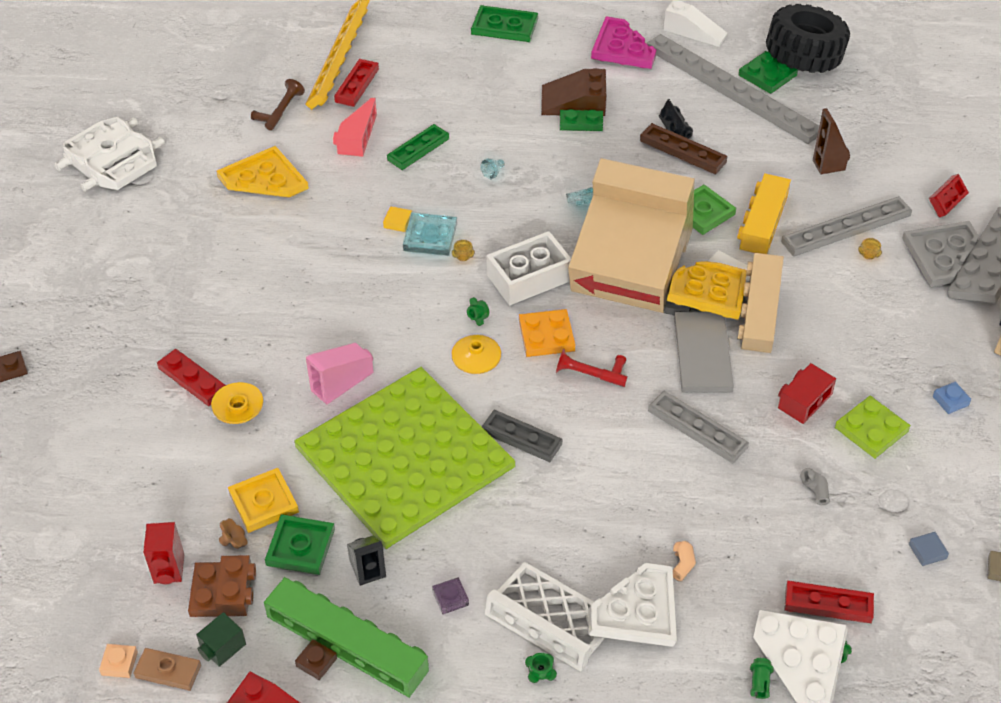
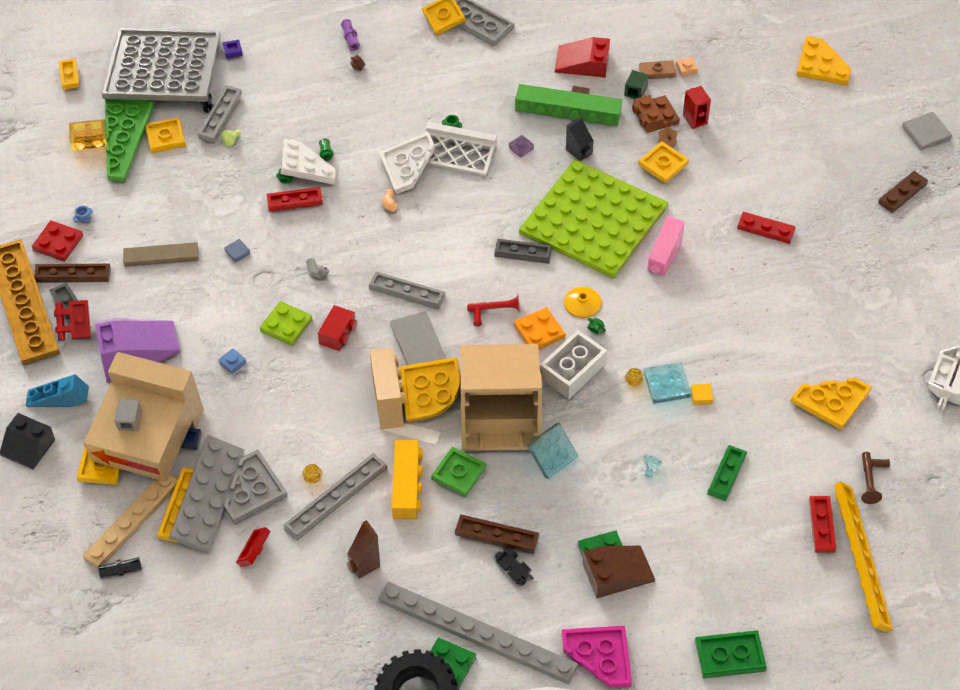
camera: 160 degrees right, 5 degrees up
(237, 403) = (720, 212): yellow dish -> none
(300, 544) = (624, 144): green plate -> none
(356, 130) = (785, 460): coral slope -> none

